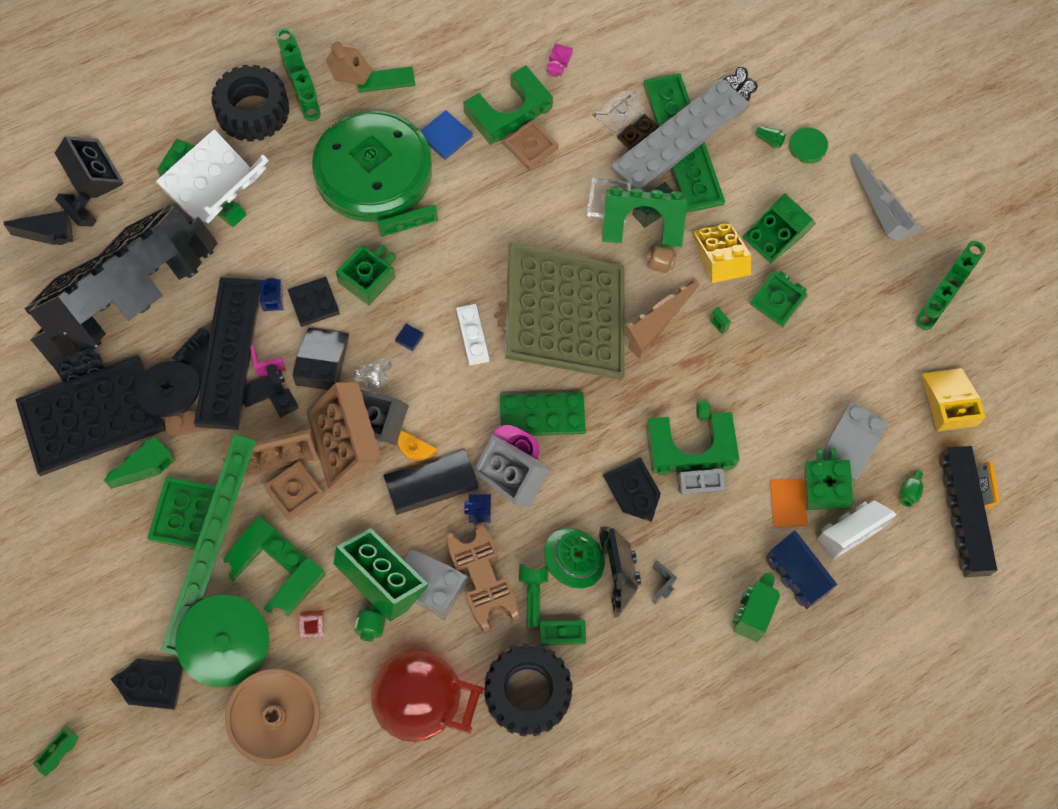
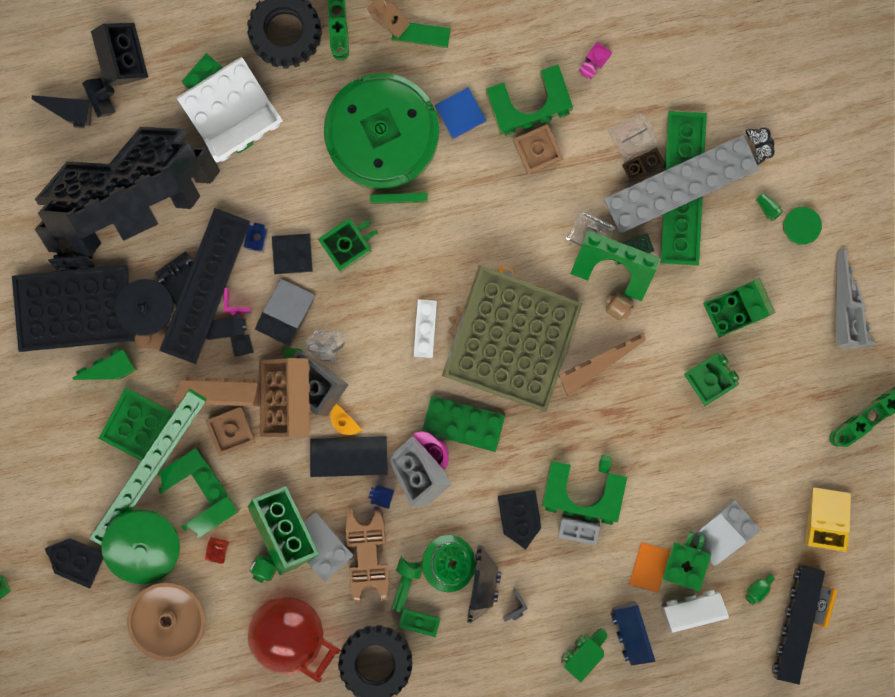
camera: 20 degrees right, 20 degrees up
(409, 337) = (368, 315): clear blue tile -> none
(720, 320) = (650, 384): green tile -> none
(722, 253) = (677, 315): yellow slope -> none

